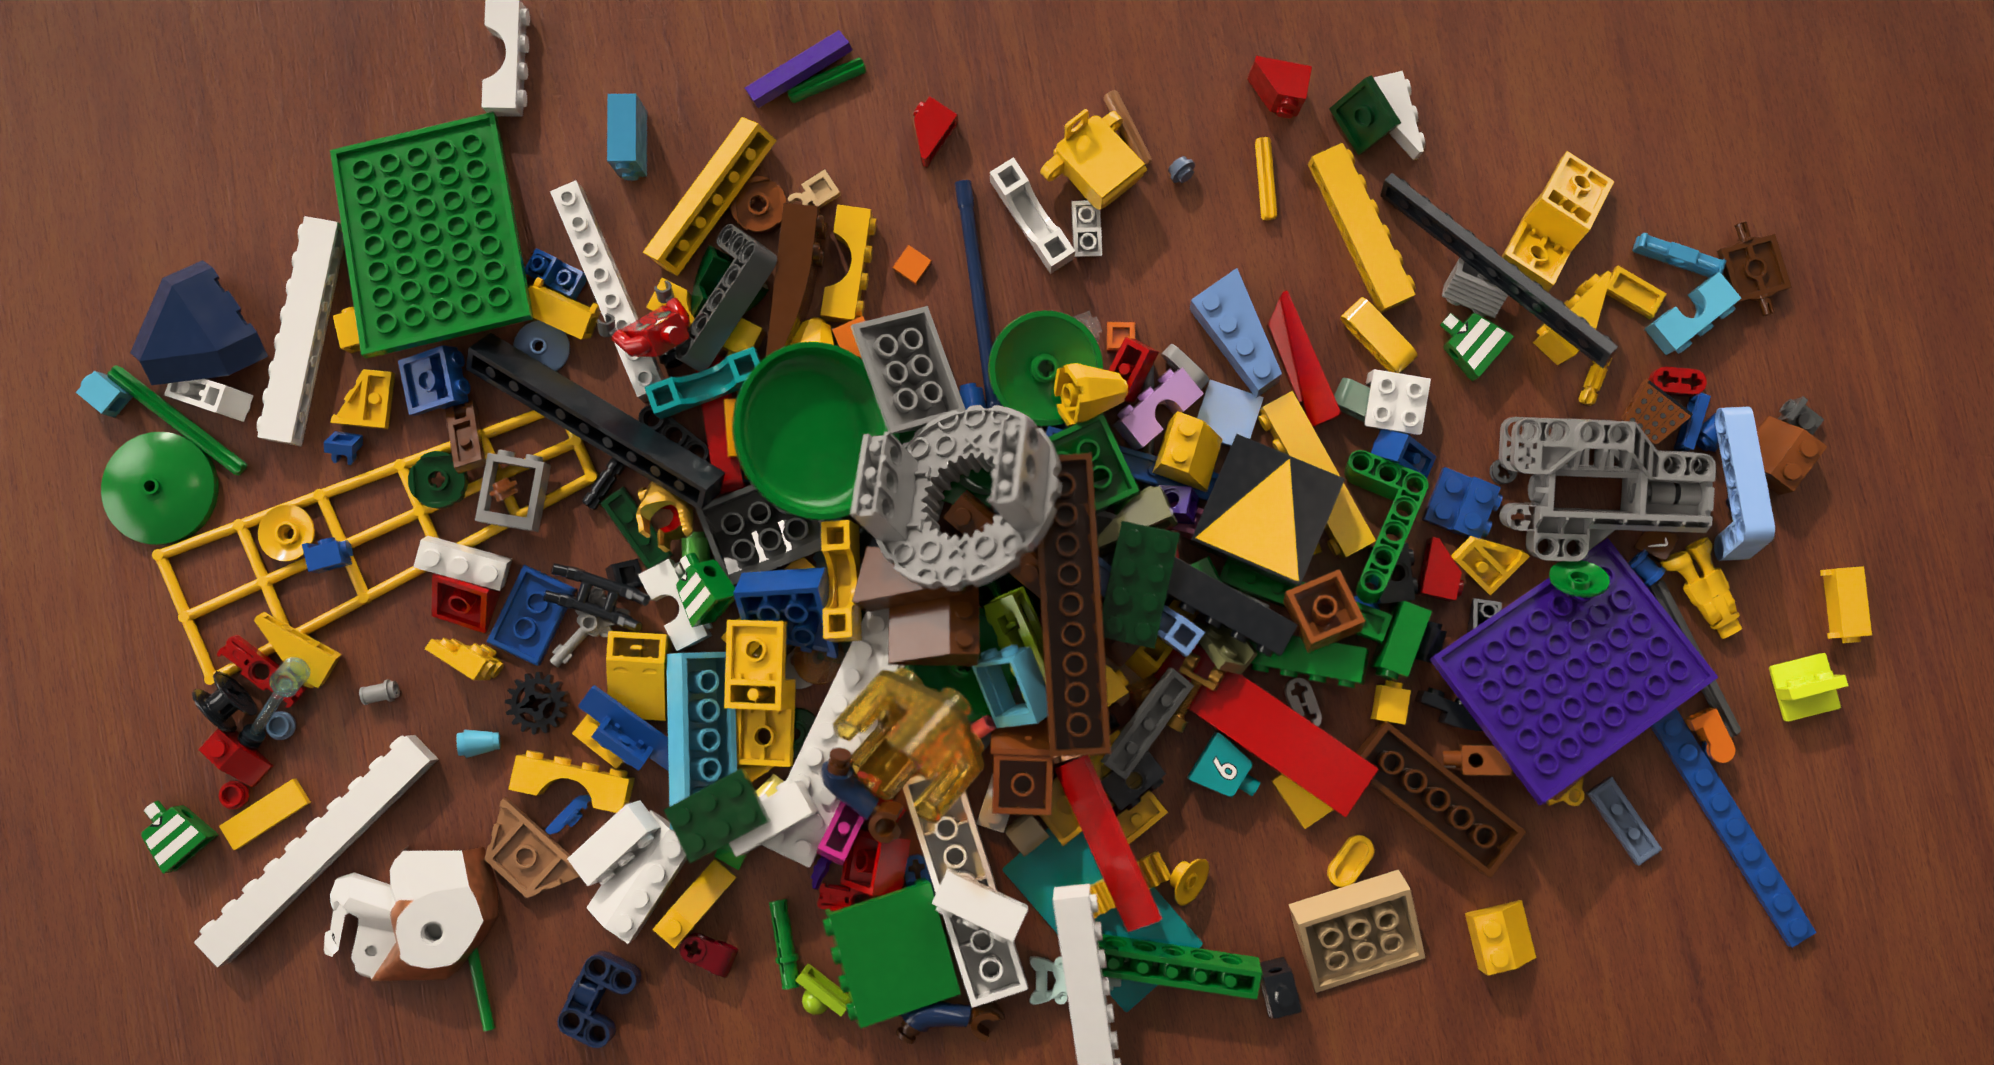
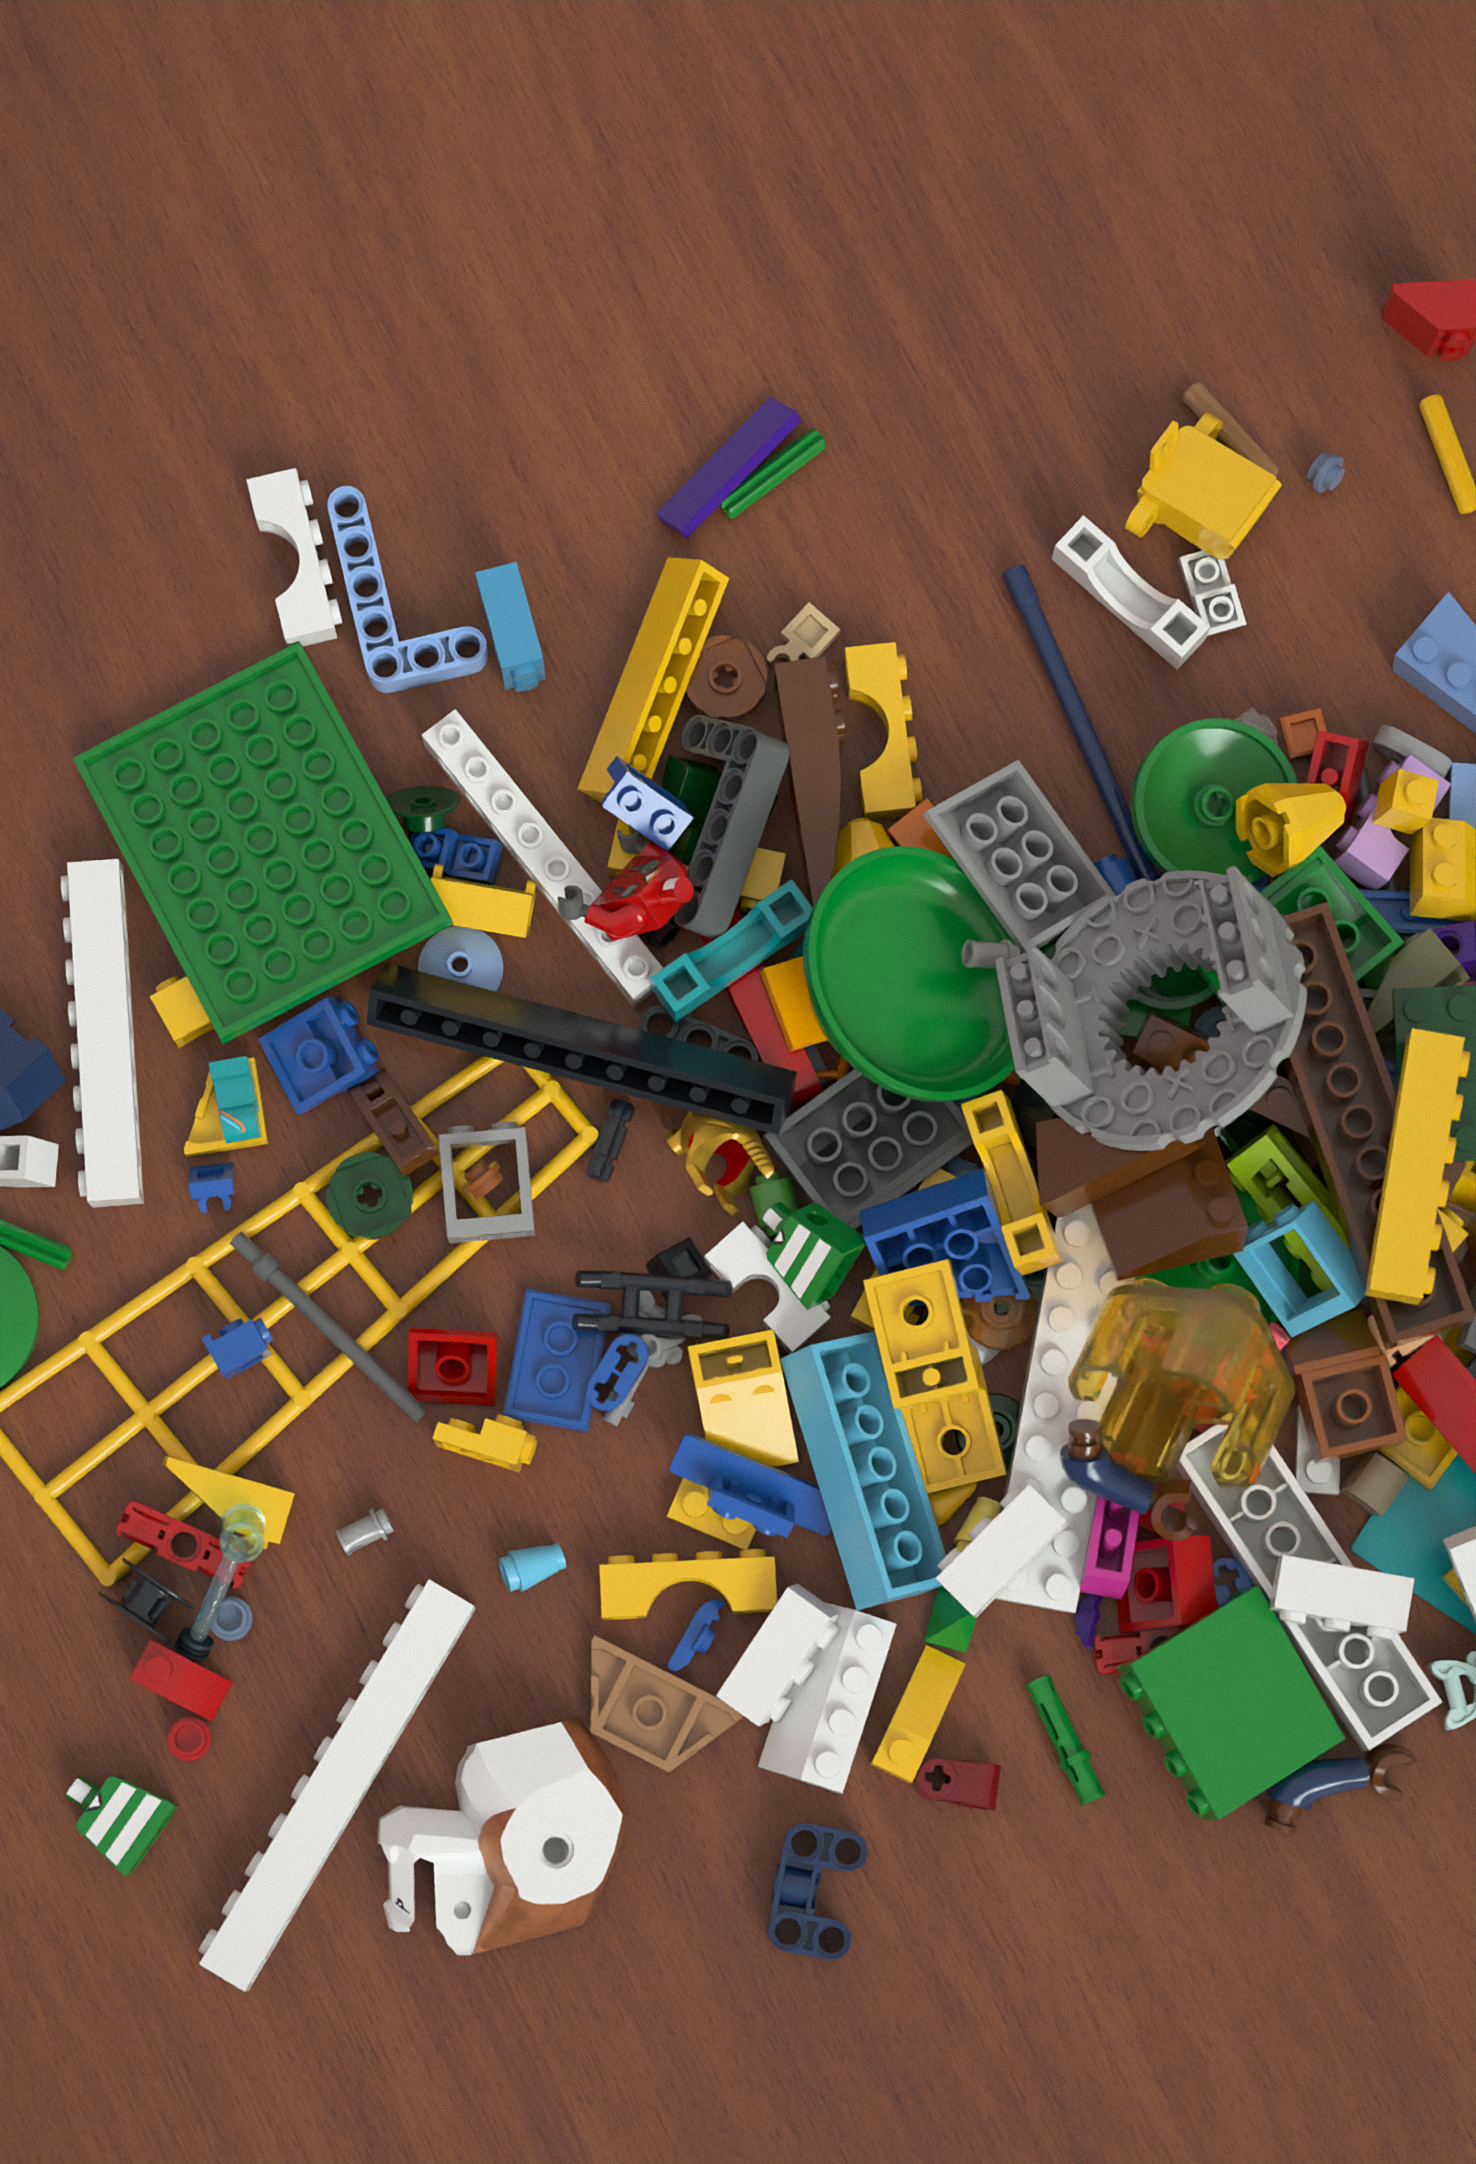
camera: 20 degrees left, 5 degrees down
(265, 814) = (242, 1755): yellow tile -> none
(274, 532) = (142, 1326): yellow dish -> none
(362, 509) = (267, 1268): none -> dark grey bar
(369, 396) = (236, 1098): none -> teal leg
(462, 562) = (442, 1306): white brick -> none
(481, 991) = (635, 1931): green bar -> none
(532, 693) = (615, 1500): black gear -> none
(542, 238) = (424, 806): none -> dark green piece
(552, 102) = (377, 609): none -> light blue beam
(568, 639) = (609, 1366): none -> blue beam
(623, 510) = (675, 1194): dark green tile -> none
(675, 273) = (645, 805): none -> bracket
(717, 815) = (930, 1562): dark green plate -> none
(821, 992) = (1139, 1797): lime tile -> none
(860, 426) = (984, 953): none -> light grey pin
(912, 264) = (972, 708): orange tile -> none
(933, 127) = (947, 502): red slope -> none
(1097, 645) = (1416, 1166): none -> yellow brick
(1168, 398) = (1405, 801): none -> yellow brick

